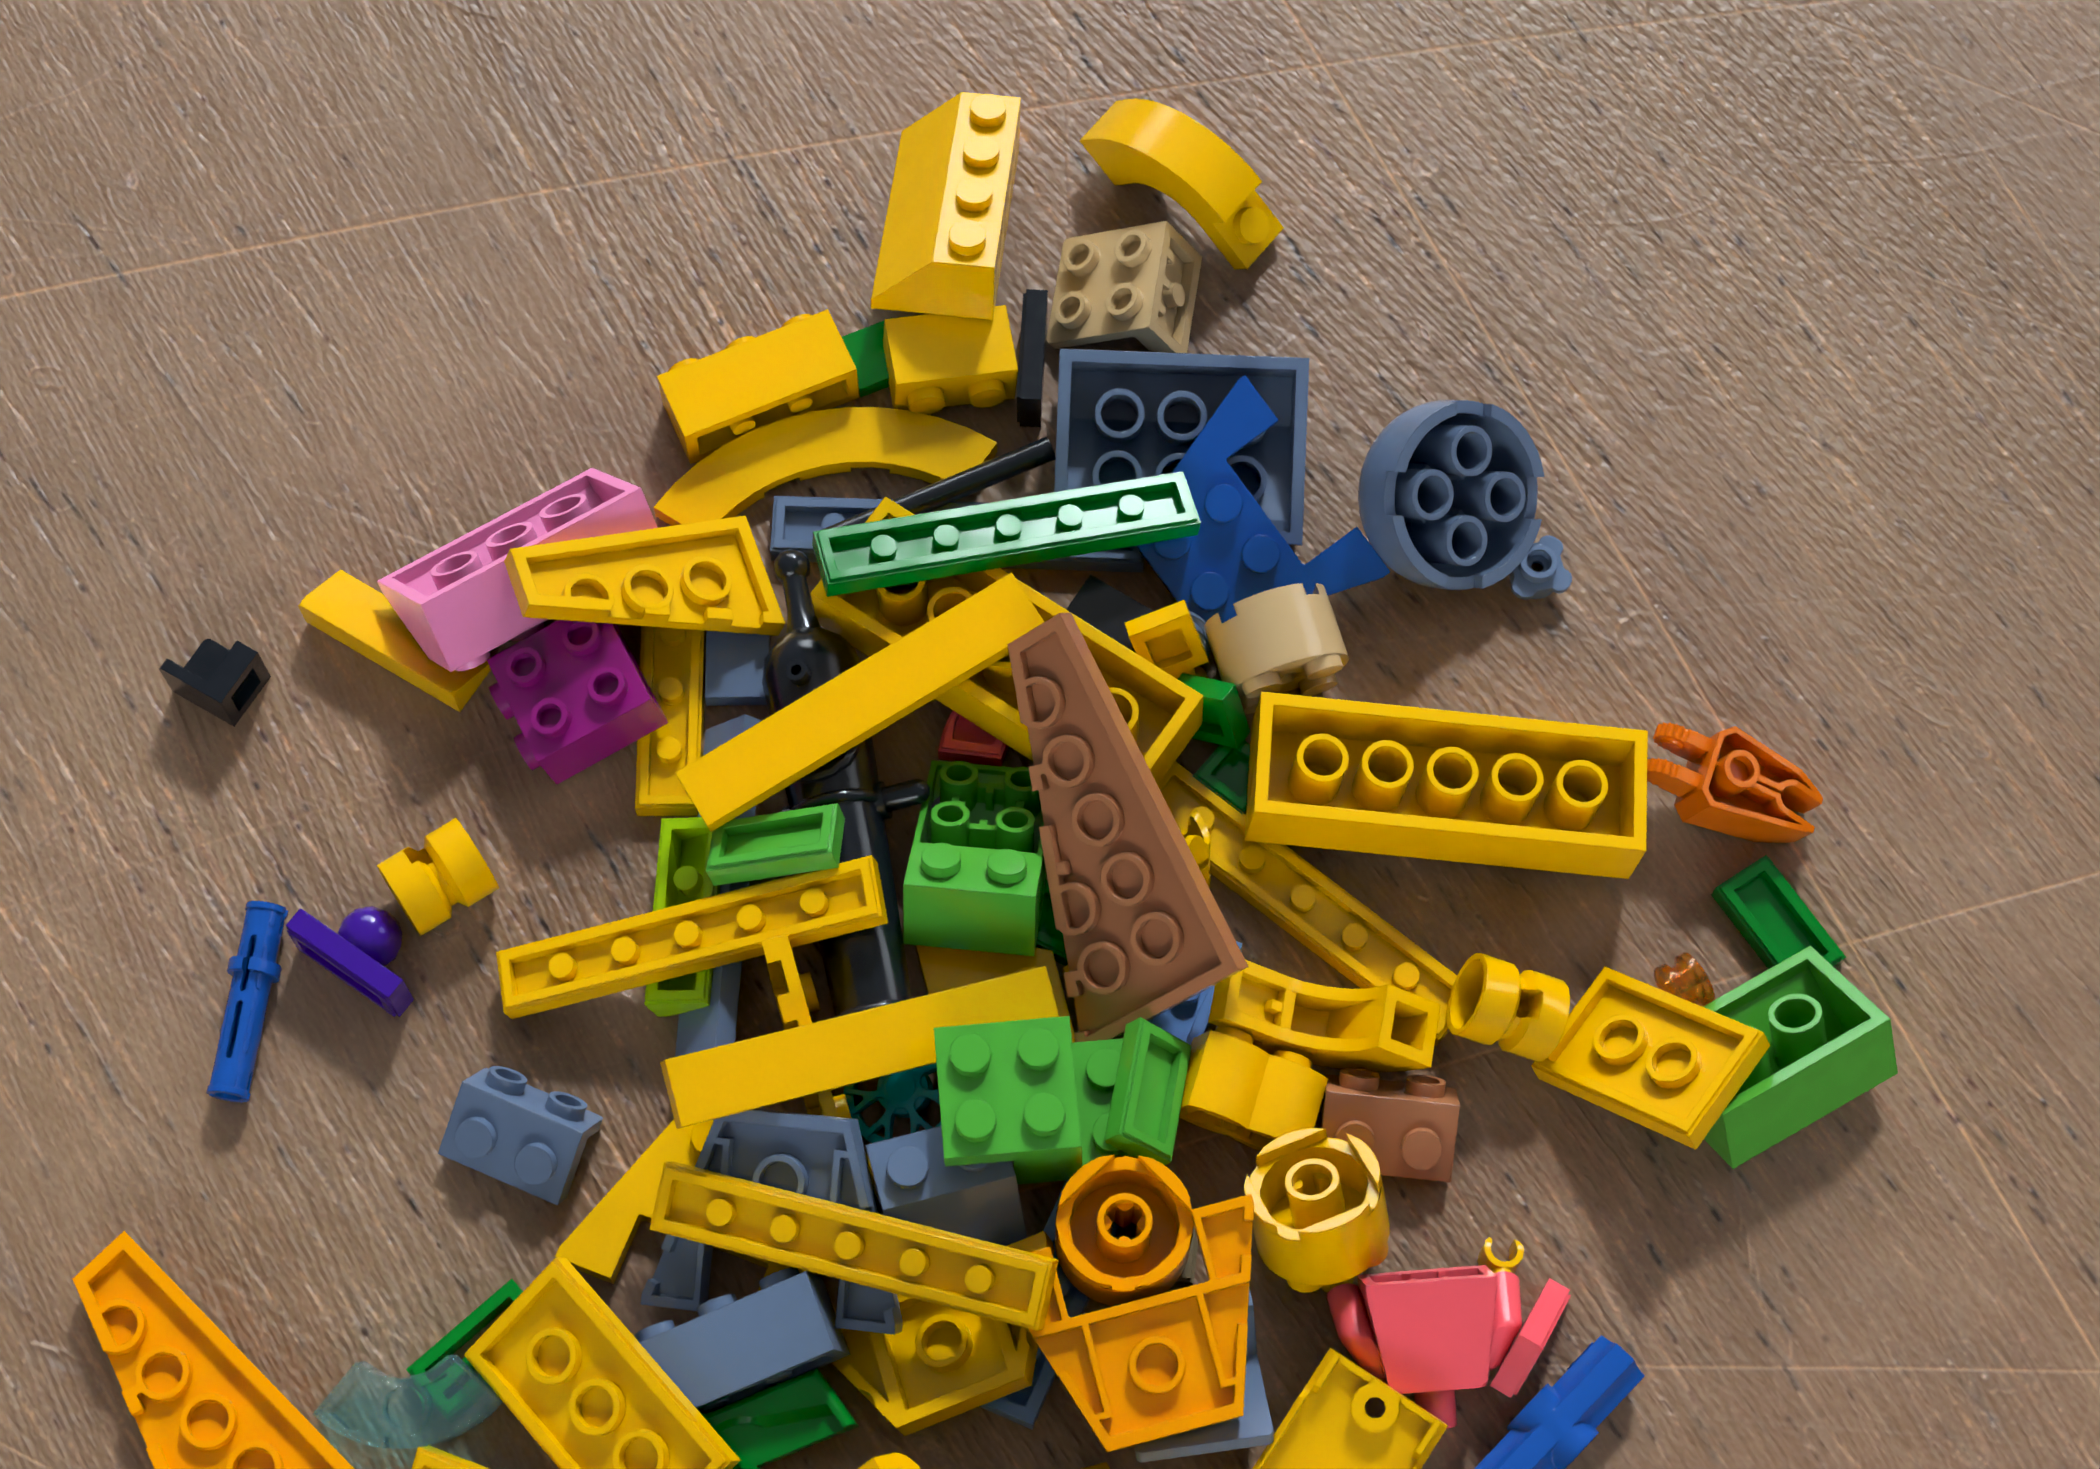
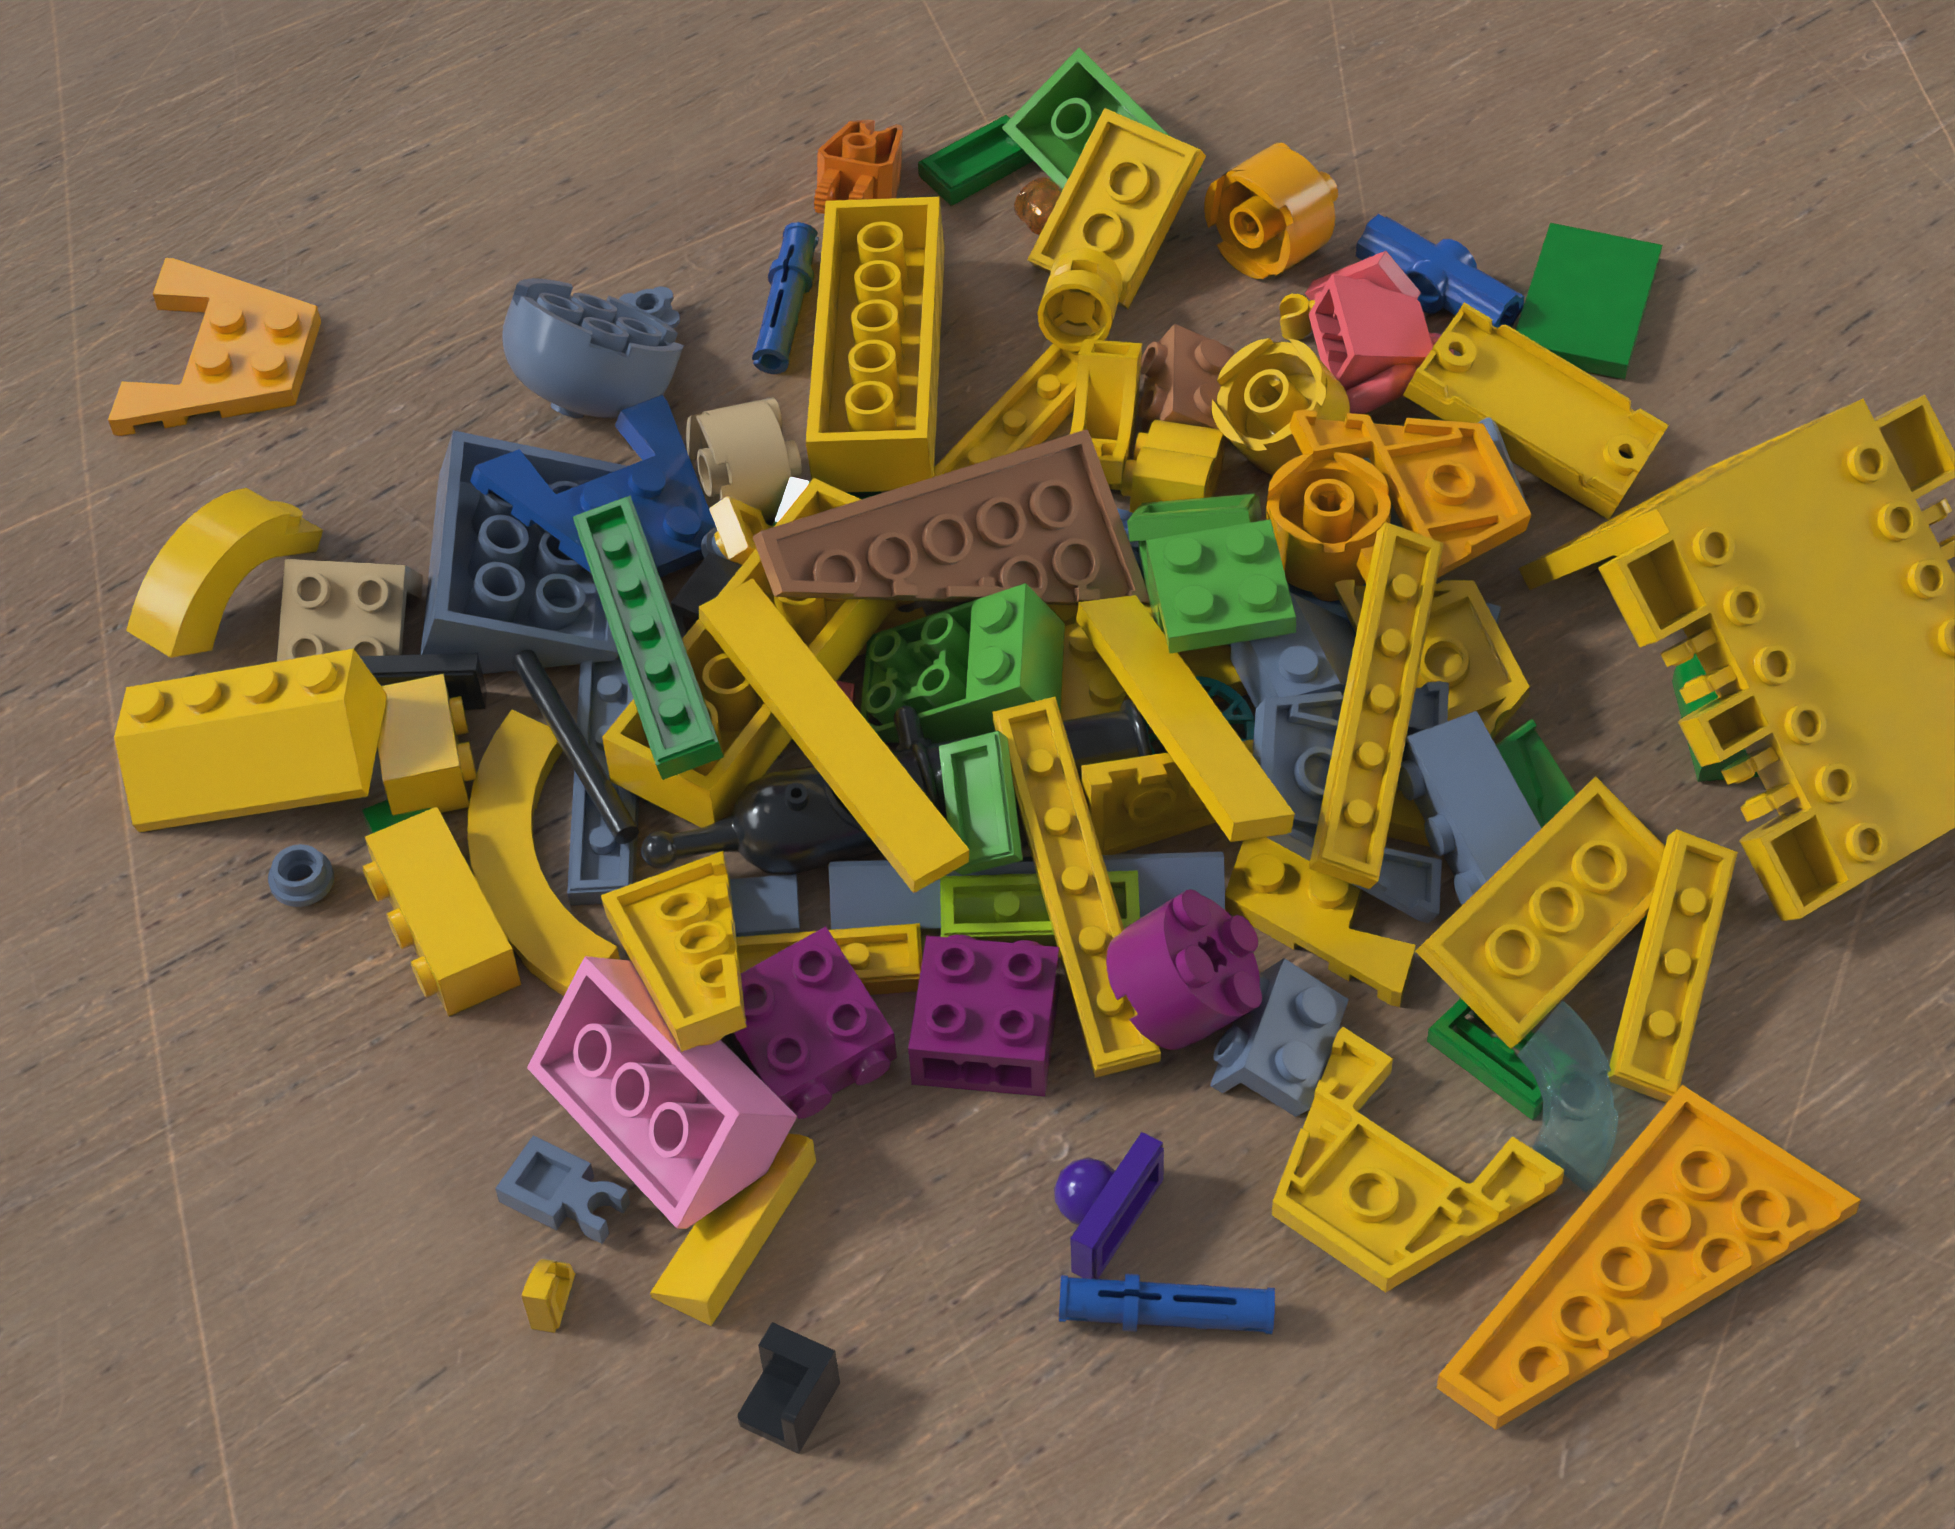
camera: 90 degrees left, 15 degrees down
(331, 1200) = (1378, 1198): none -> yellow wing
(347, 483) = (547, 1294): none -> yellow tile
(438, 876) = (1012, 1126): yellow wheel -> none
(448, 486) = (557, 1185): none -> sand blue plate
(570, 1033) = (1185, 970): none -> magenta brick
(577, 856) = (985, 1015): none -> magenta brick
(818, 256) = (296, 863): none -> sand blue plate
(1500, 187) = (244, 357): none -> light orange wing
(1540, 702) = (789, 280): none -> blue pin
(1640, 1234) = (1271, 211): none -> light orange brick

